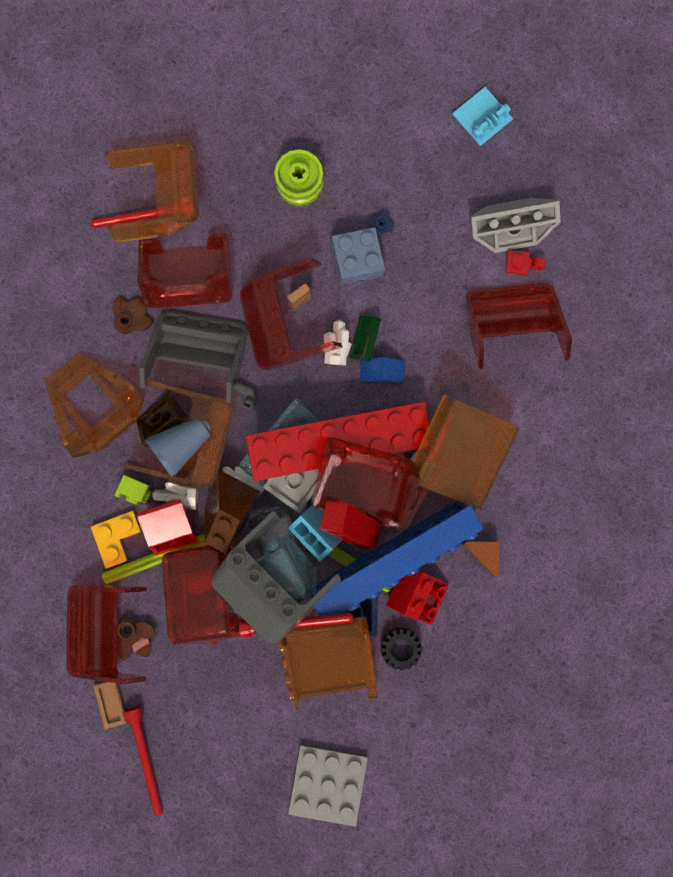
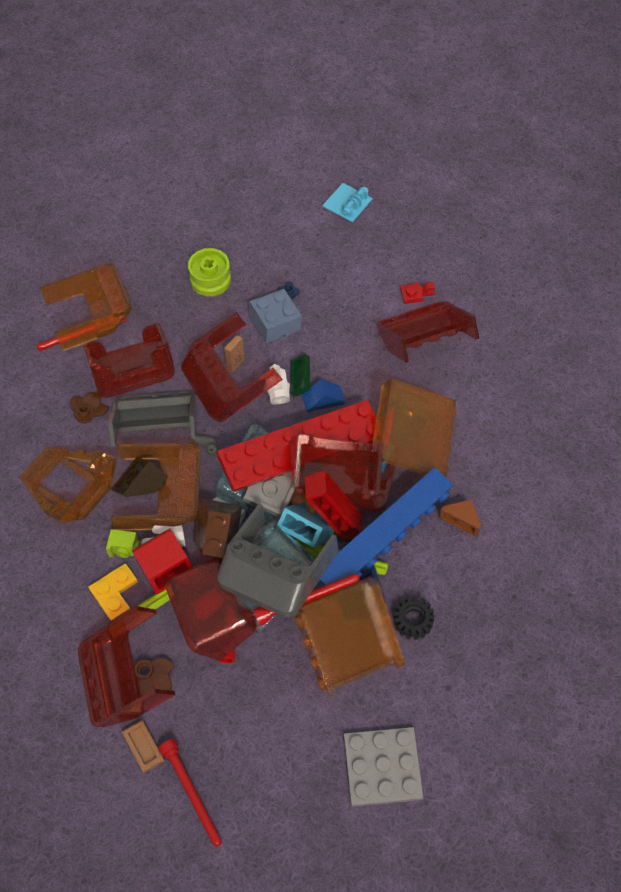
camera: 15 degrees left, 25 degrees down
(179, 443) = (155, 483): sand blue cone -> none
(418, 596) = (413, 566): red slope -> none
(515, 223) = (400, 264): light grey wedge -> none

